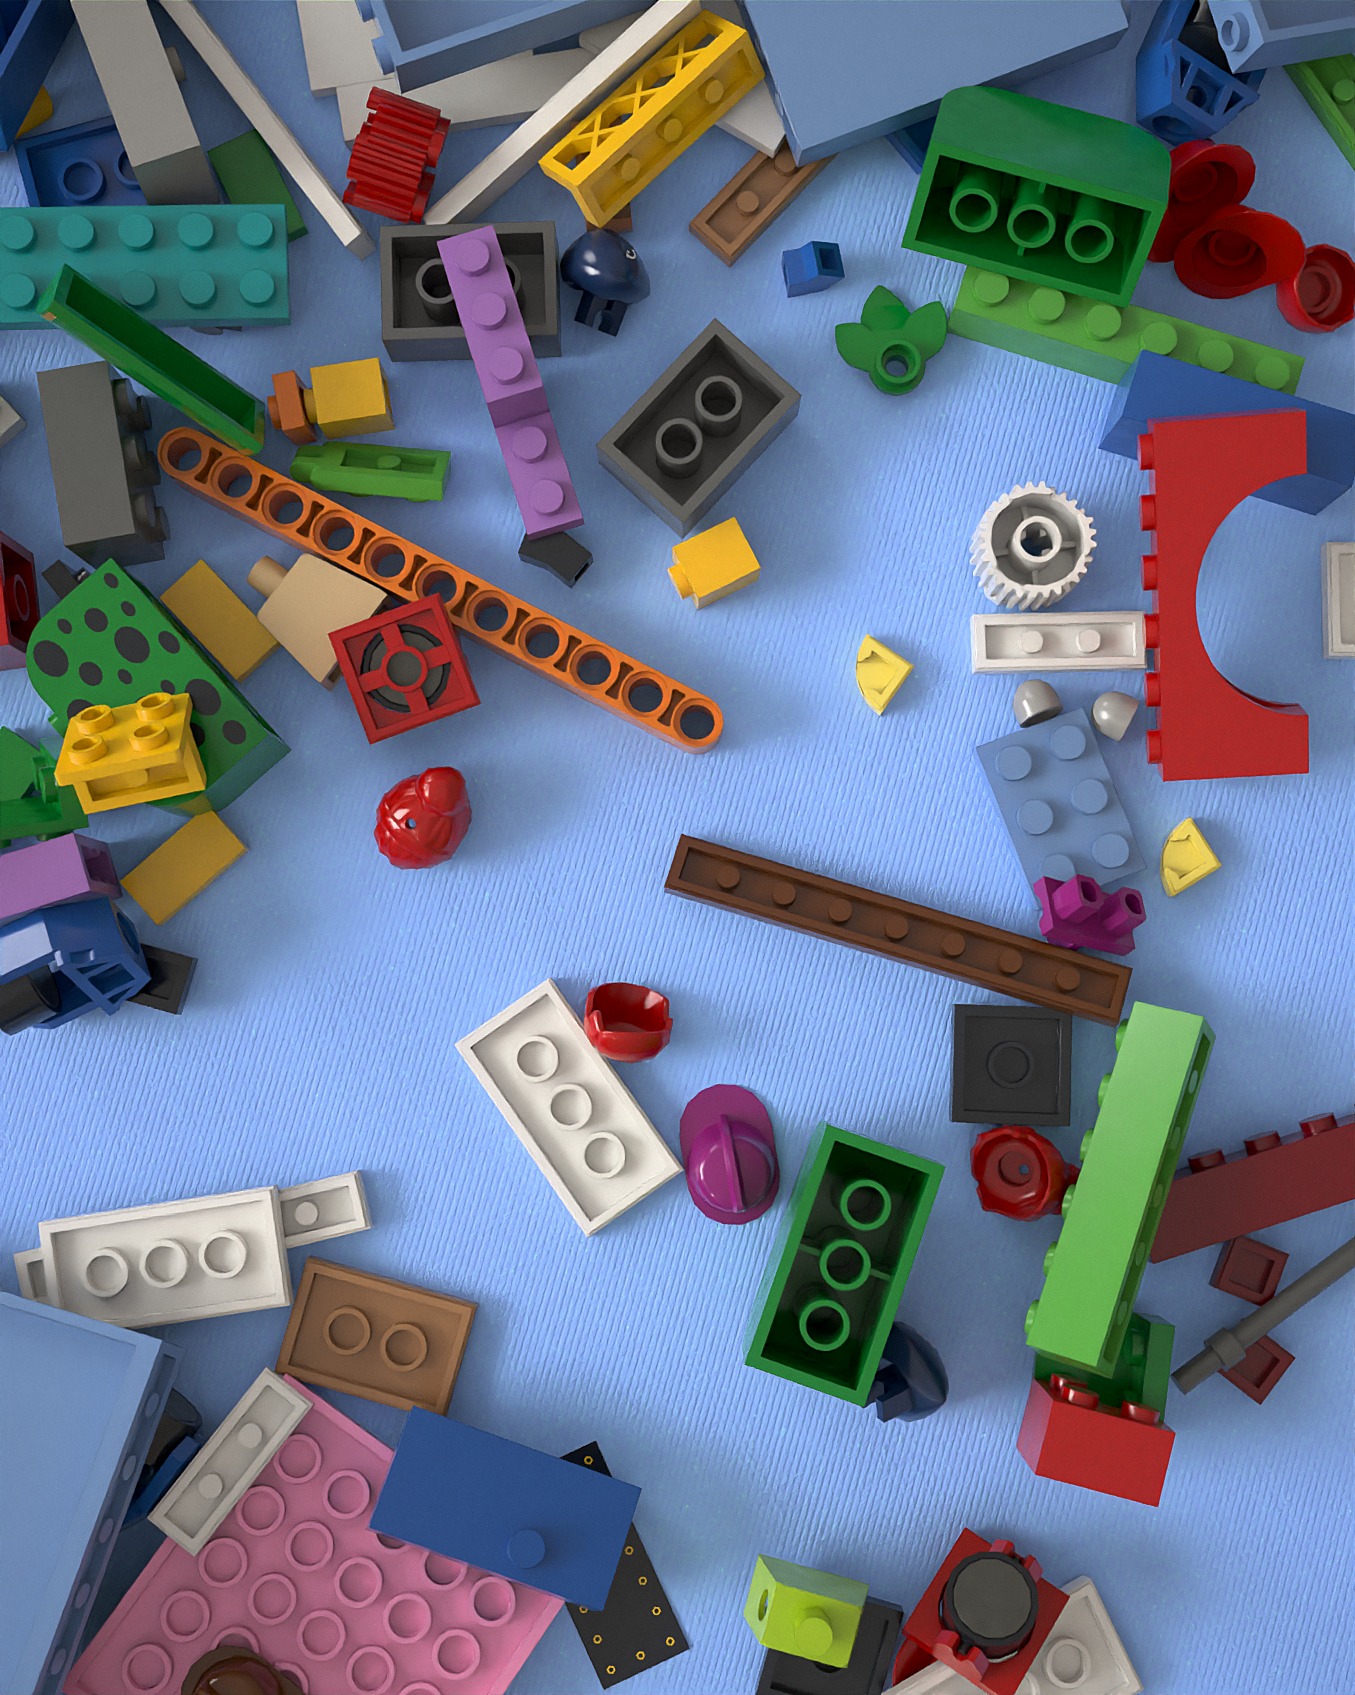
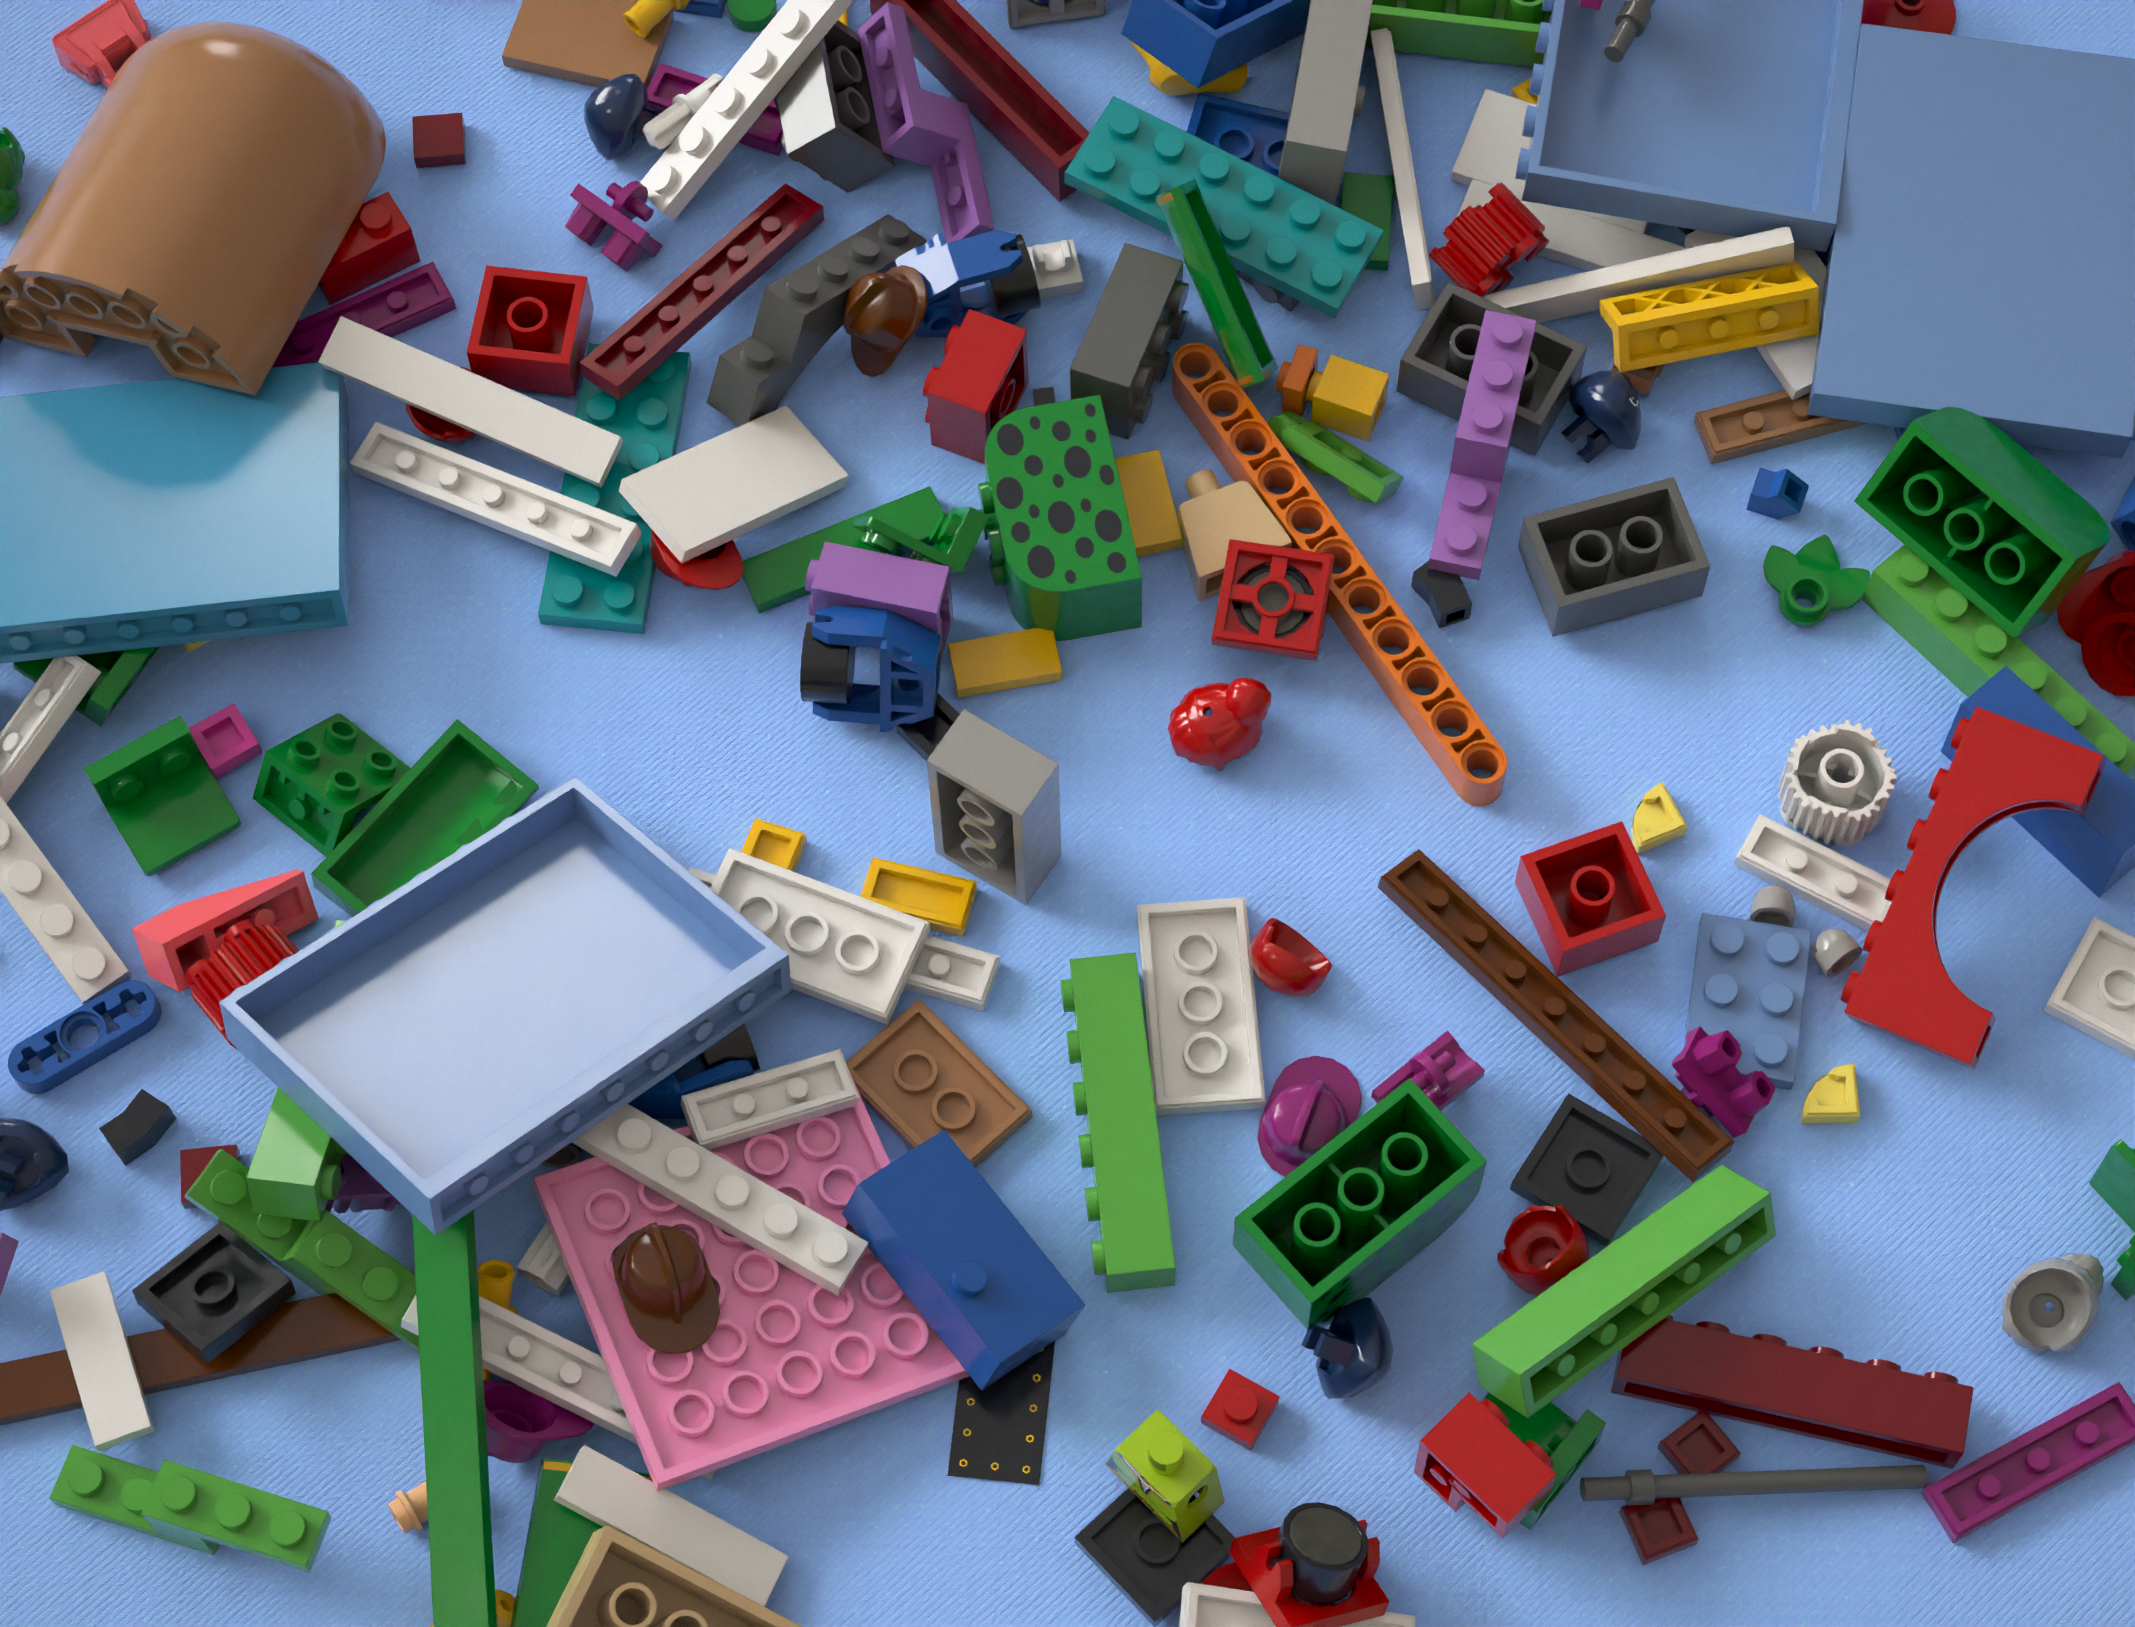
camera: 30 degrees right, 20 degrees down
(80, 1187) = (775, 844): none -> yellow tile
(131, 753) = (1033, 531): yellow bracket -> none
(245, 1153) = (922, 893): none -> yellow tile
(252, 1586) = (726, 1196): none -> white plate
(263, 1064) = (995, 806): none -> light grey brick
(565, 1274) = (1121, 1123): none -> bright green brick
(713, 564) = (1566, 663): yellow brick -> none
(824, 1071) = (1439, 1071): none -> magenta hips
(828, 1476) = (1240, 1409): none -> red plate
(871, 800) = (1589, 898): none -> red brick

